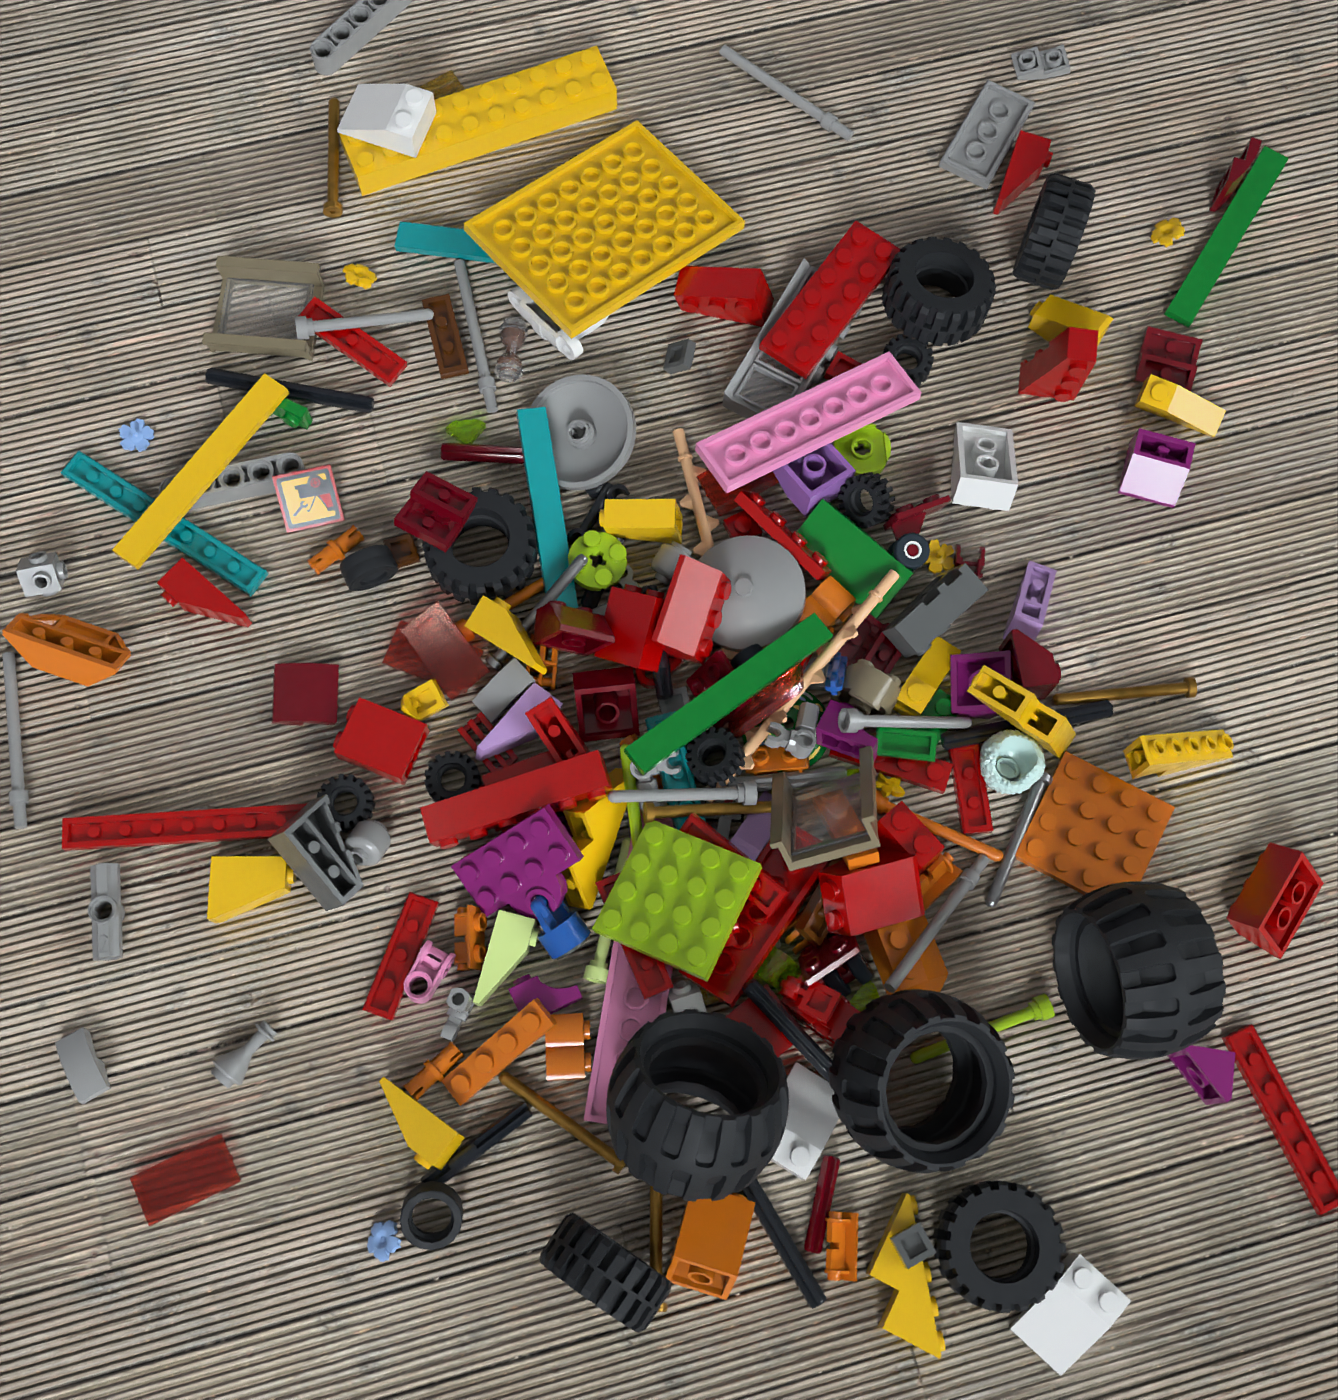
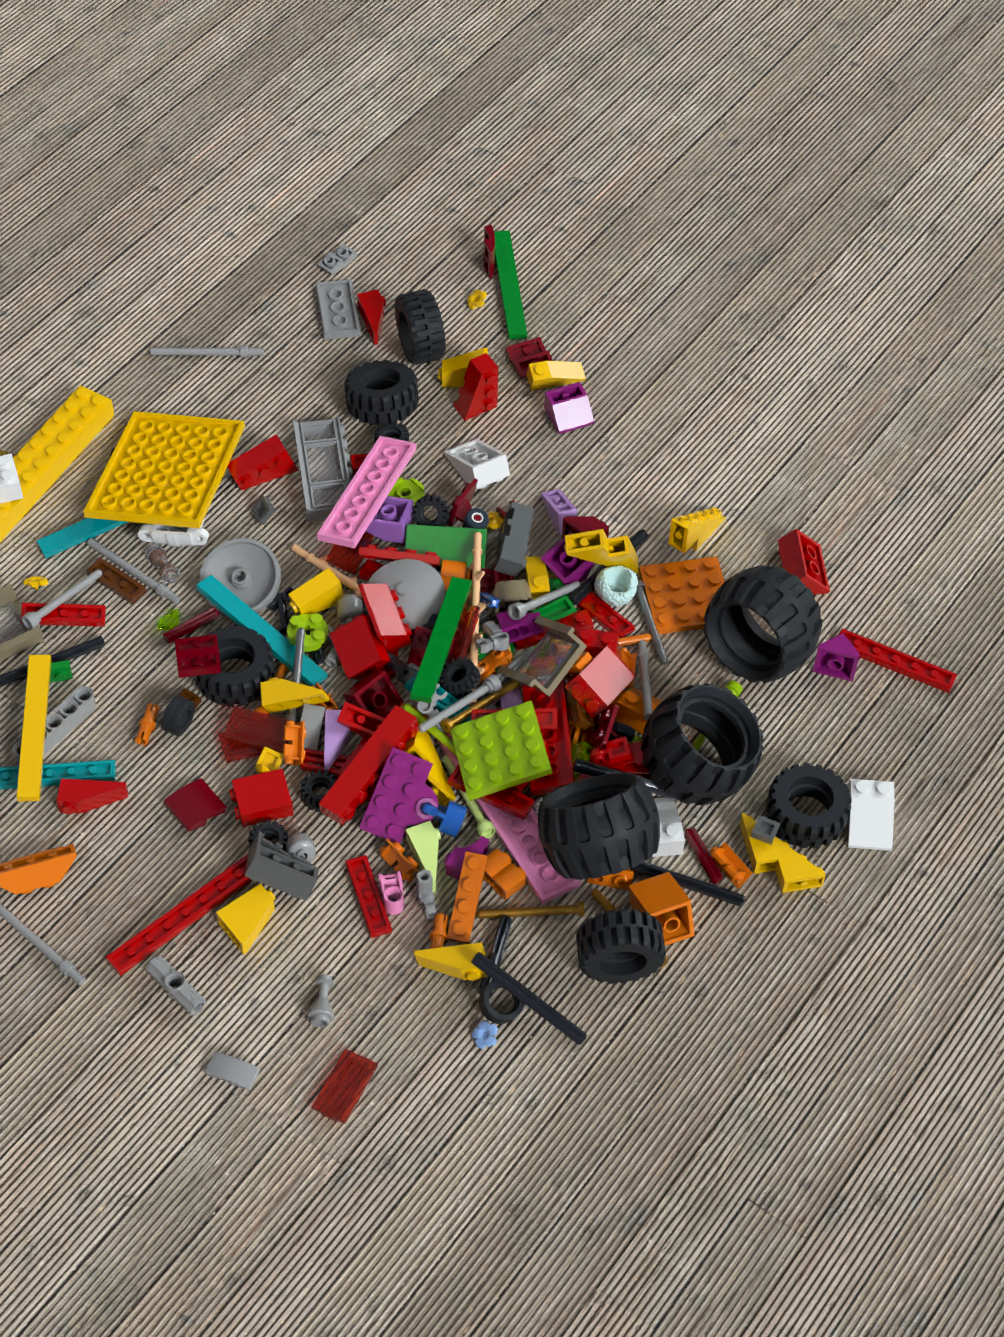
camera: 35 degrees left, 20 degrees down
(308, 498) = (108, 706): piece -> none
(457, 1243) = (529, 998): none -> black axle
(472, 691) = (294, 752): none -> orange hinge
(571, 629) = (325, 670): dark red slope -> none
(829, 300) = (325, 430): red plate -> none
(1187, 687) = (675, 499): pearl gold bar -> none

